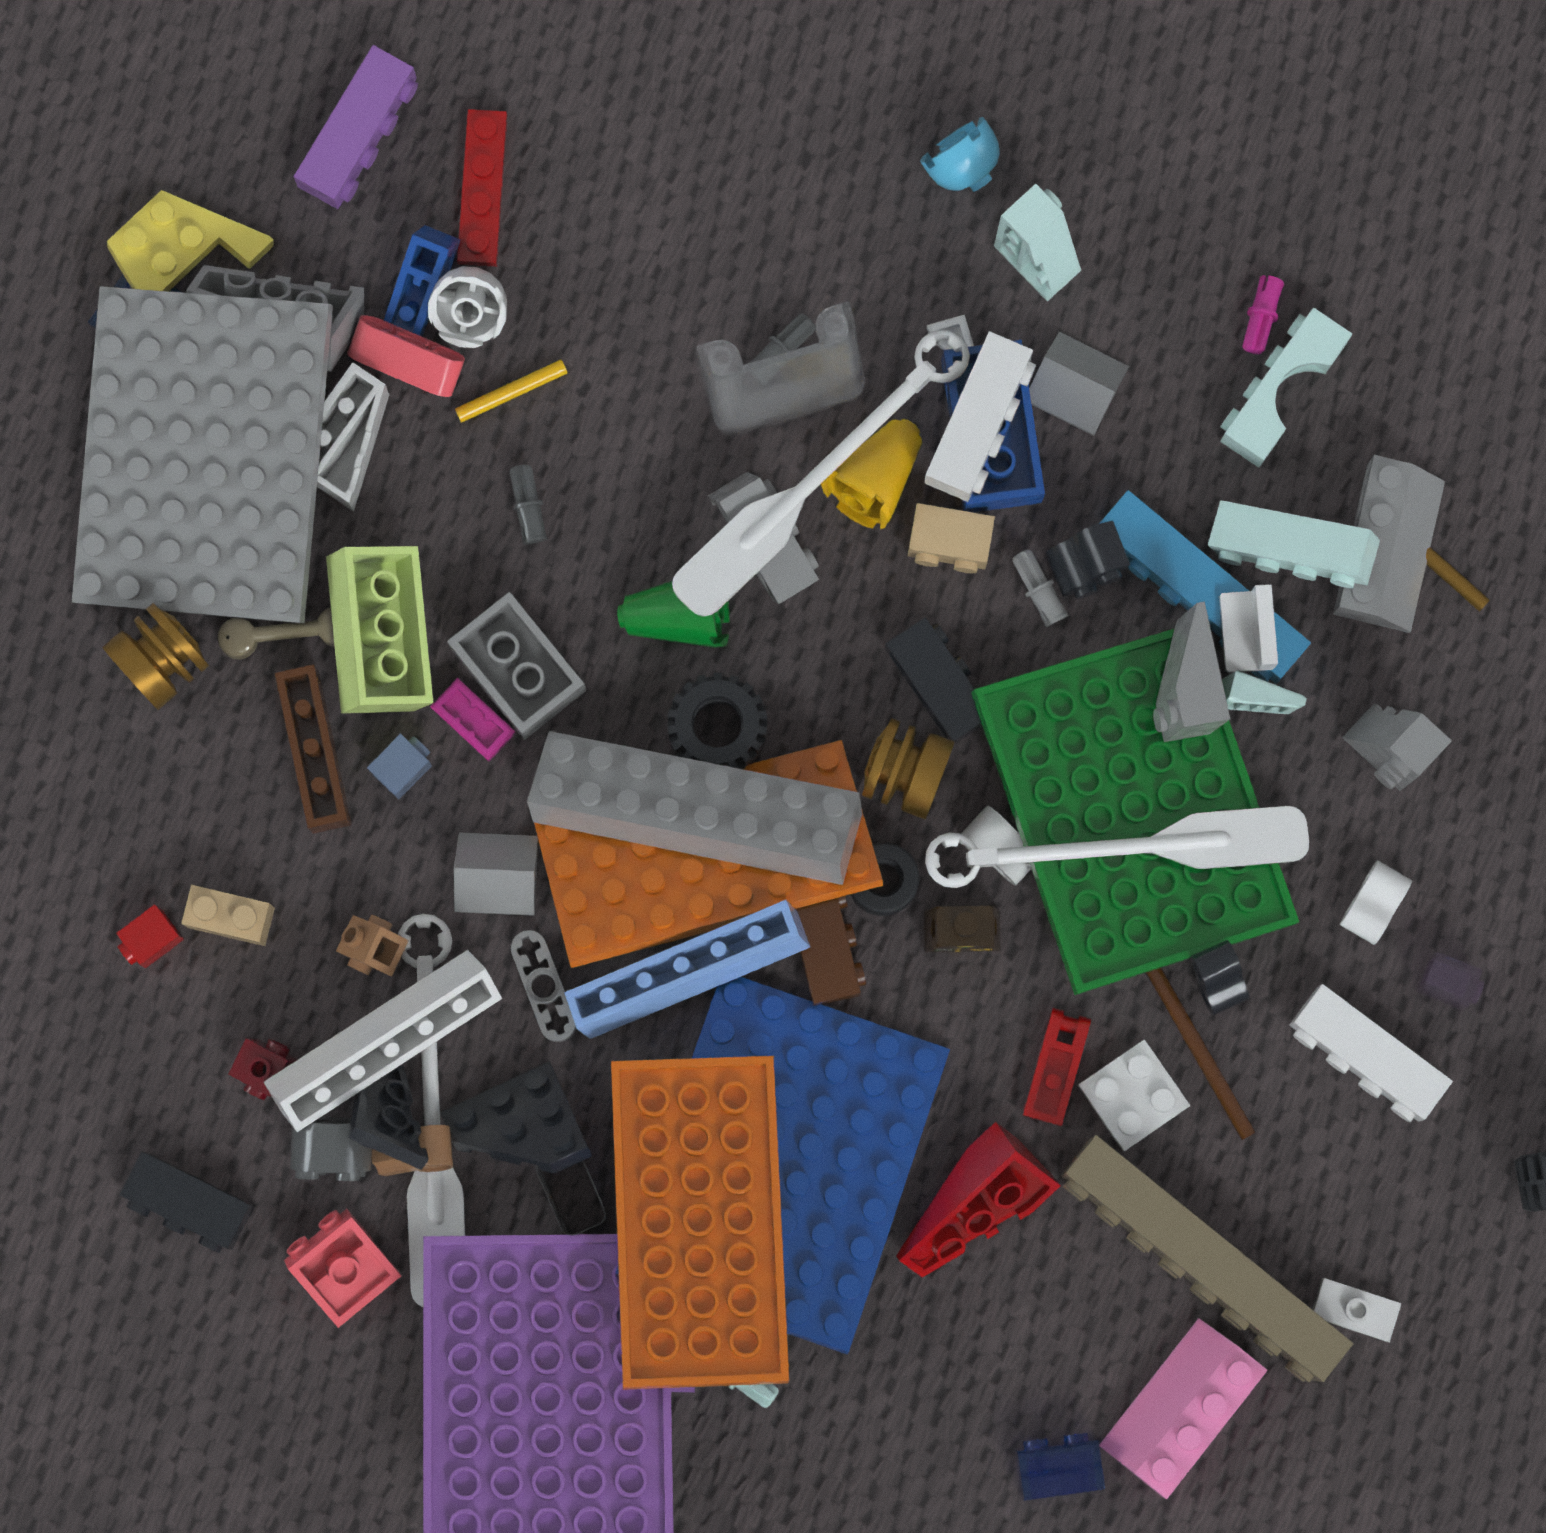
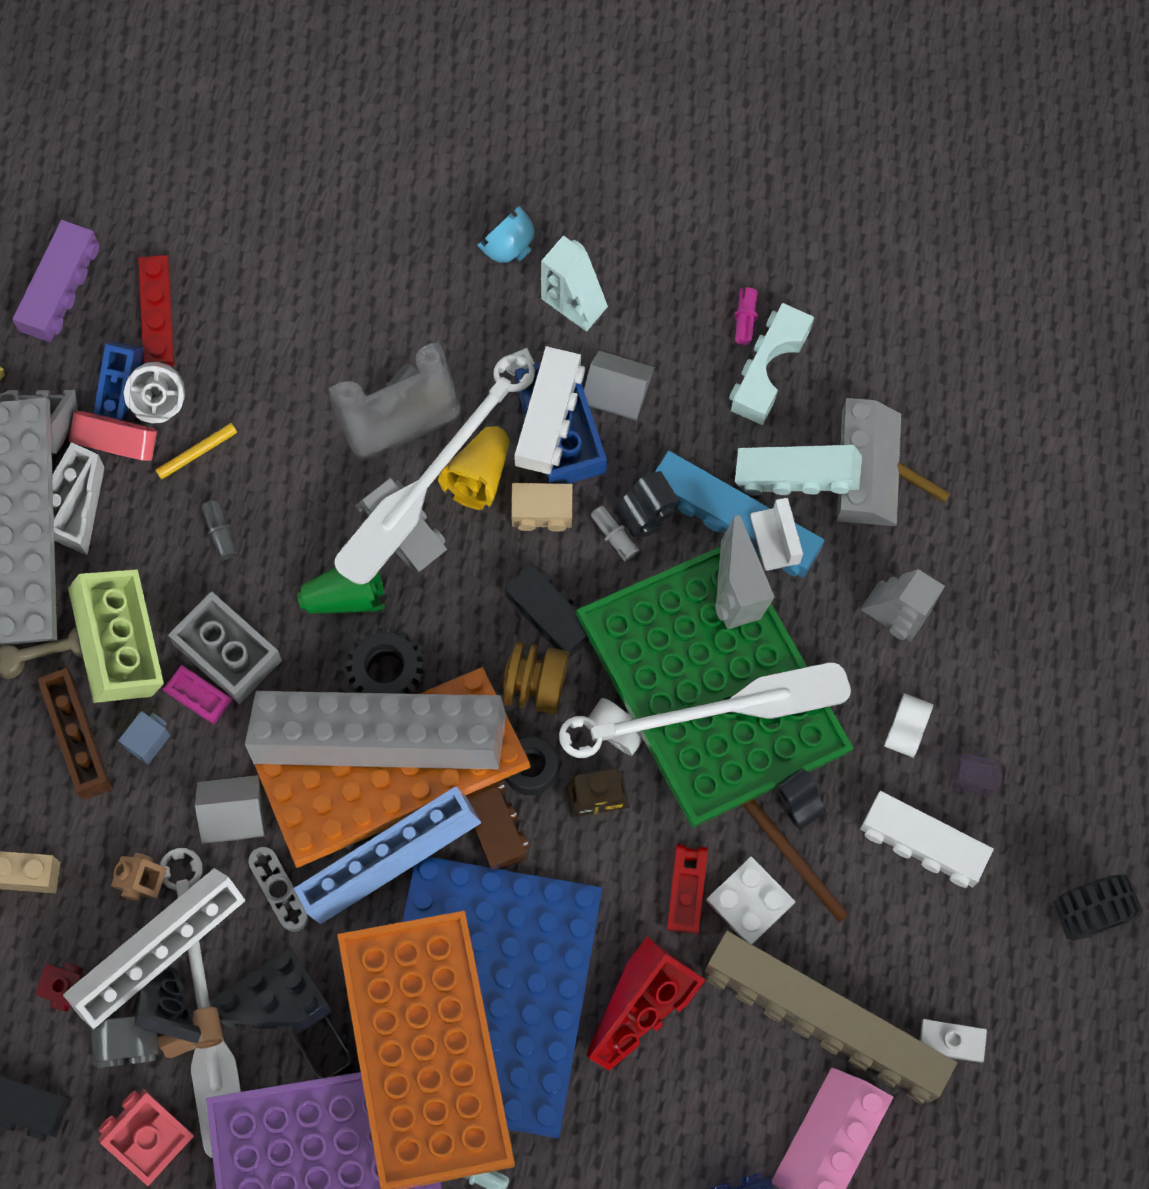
camera: 10 degrees left, 10 degrees down
(1256, 695) = (794, 585): light aqua slope -> none

